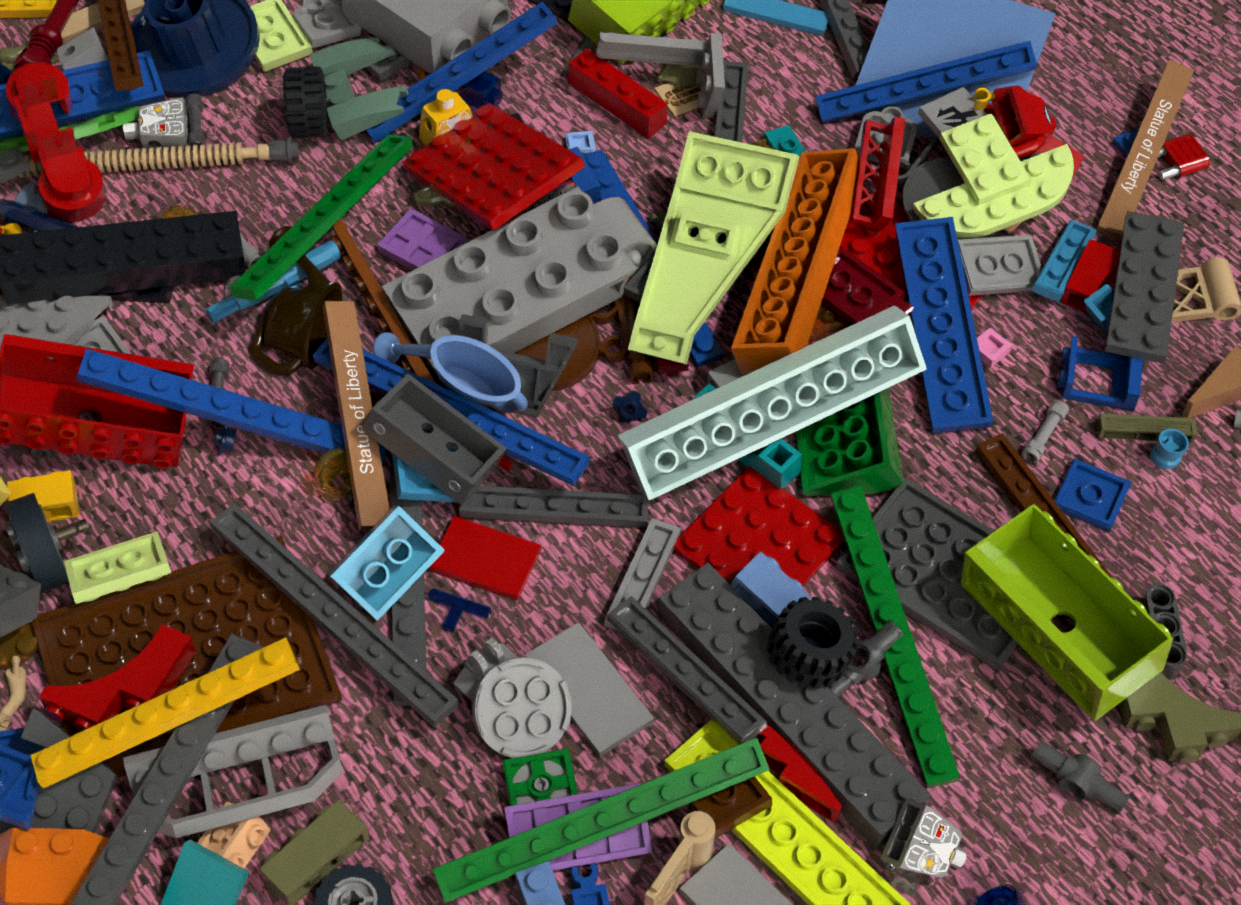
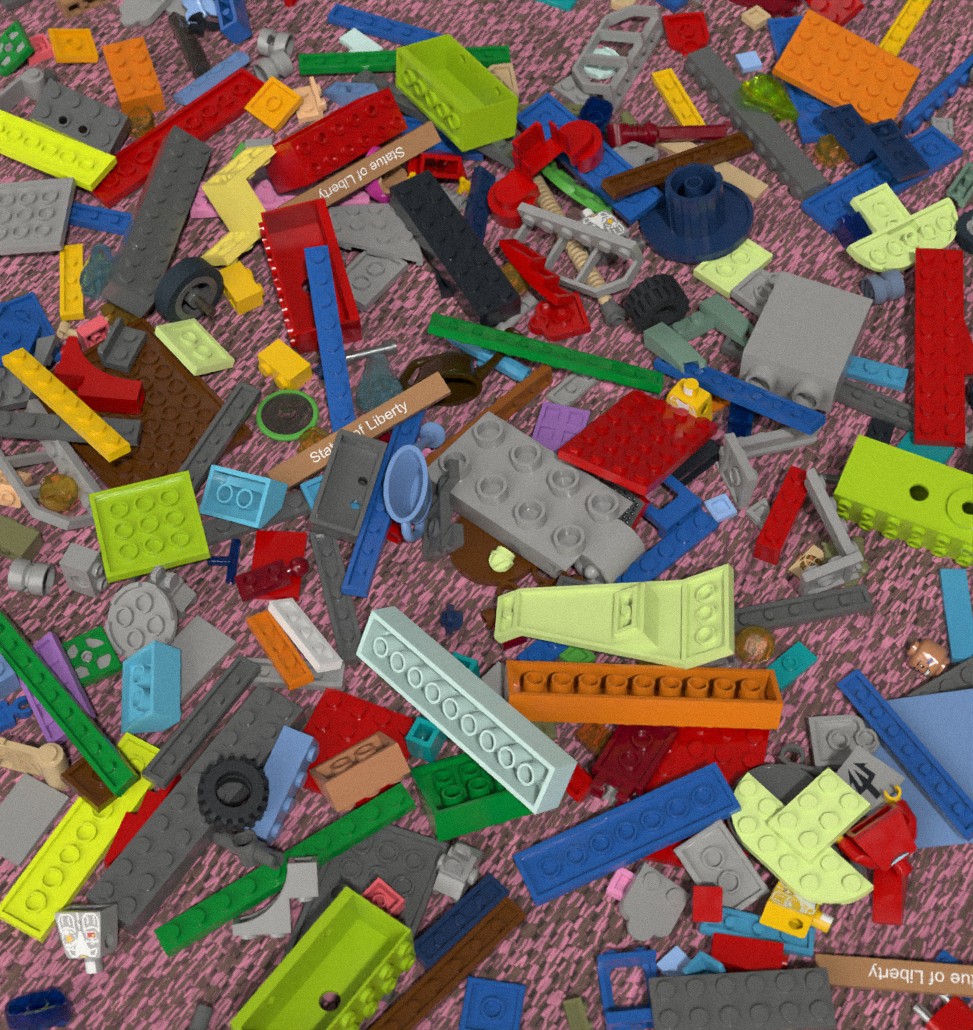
camera: 75 degrees right, 0 degrees up
(32, 675) = (92, 332): none -> coral piece
(79, 646) = (121, 346): none -> dark grey bracket
(181, 124) = (586, 235): none -> light grey plate
(183, 195) = (532, 268): none -> red slope
(197, 479) = (284, 366): none -> yellow brick
(263, 199) = (560, 321): none -> red plate
(276, 479) = (272, 409): none -> clear smoke wheel
(280, 383) = (377, 383): none -> clear light blue cone
(293, 759) = (58, 492): none -> clear yellow hair
(367, 221) = (572, 389): none -> light grey tile
(396, 662) = (148, 526): none -> lime plate
(401, 821) = (29, 576): none -> light grey wheel
(422, 755) = (84, 570): none -> light grey brick
(508, 563) = (269, 577): none -> dark red plate
(548, 106) = (734, 463): none -> light grey bracket
(580, 331) = (501, 559): none -> yellowish green plate
(600, 116) = (759, 512): none -> light grey tile
(602, 545) = (305, 635): none -> white plate
(610, 576) = (280, 650): none -> orange tile
(621, 719) = (151, 689): none -> medium azure slope
(720, 316) = (577, 655): none -> bright green tile
(801, 528) = (360, 771): none -> nougat slope
(819, 45) = (927, 657): none -> nougat head
(888, 173) = (774, 741): red fence -> none
(941, 474) = (457, 871): none -> light grey hinge
(947, 653) = (277, 917): none -> light grey arch
(953, 548) = (384, 897): none -> coral piece
(986, 482) = (458, 921): none -> dark blue plate
(1017, 330) = (651, 904): none -> light grey plate
(1037, 282) = (707, 904): none -> red panel
(1055, 414) = (572, 960): light grey bar -> none
(1058, 225) = (793, 914): none -> yellow torso
(1085, 331) = (673, 963): none -> light blue tile

